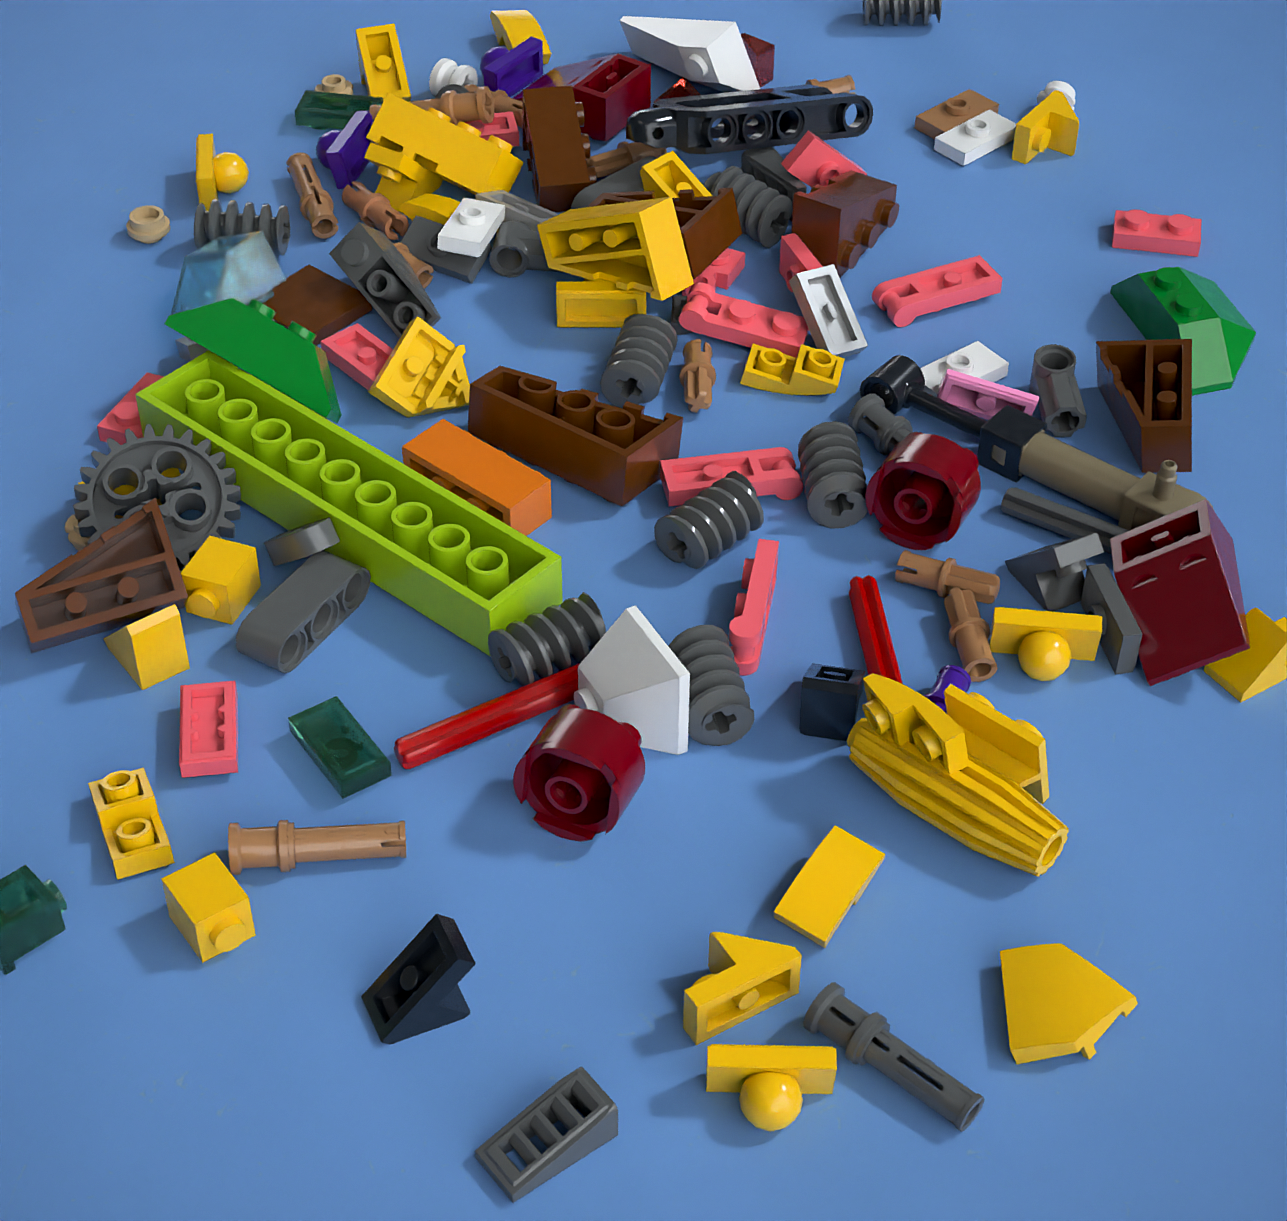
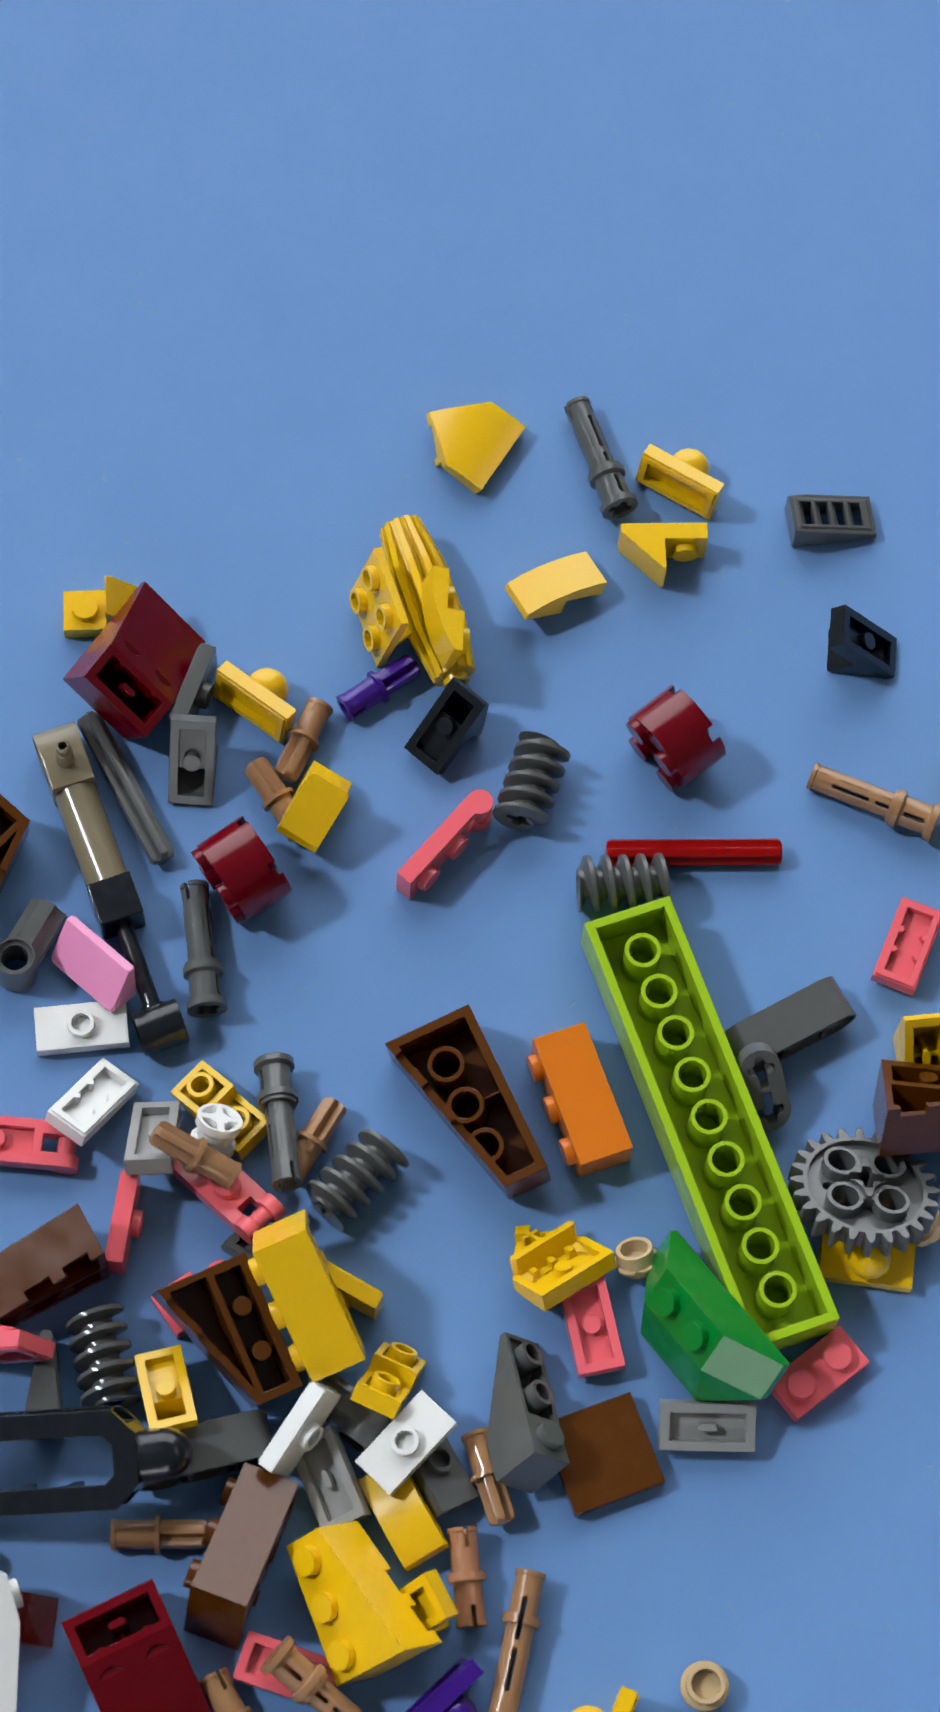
camera: 155 degrees left, 25 degrees up
(216, 223) = (618, 1597): dark grey piece -> none
(221, 579) = (841, 1092): yellow brick -> none
(228, 268) = (684, 1487): clear light blue slope -> none
(340, 747) = (820, 878): clear green plate -> none
(362, 402) = (635, 1257): none -> tan plate
(514, 261) = (389, 1379): none -> yellow slope
(560, 197) = (300, 1429): none -> white plate
(638, 682) = (595, 795): white slope -> none
(710, 521) = (423, 941): dark grey piece -> none
(746, 374) = (278, 1102): none -> dark grey pin
(767, 469) = (366, 998): coral plate -> none
(779, 285) = (195, 1154): none -> medium nougat axle
(785, 316) = (219, 1126): none -> white wheel
(833, 475) = (286, 945): dark grey piece -> none
(873, 628) = (379, 762): red axle -> none
(900, 320) = (91, 1102): none -> white plate
(906, 576) = (314, 806): none -> yellow slope

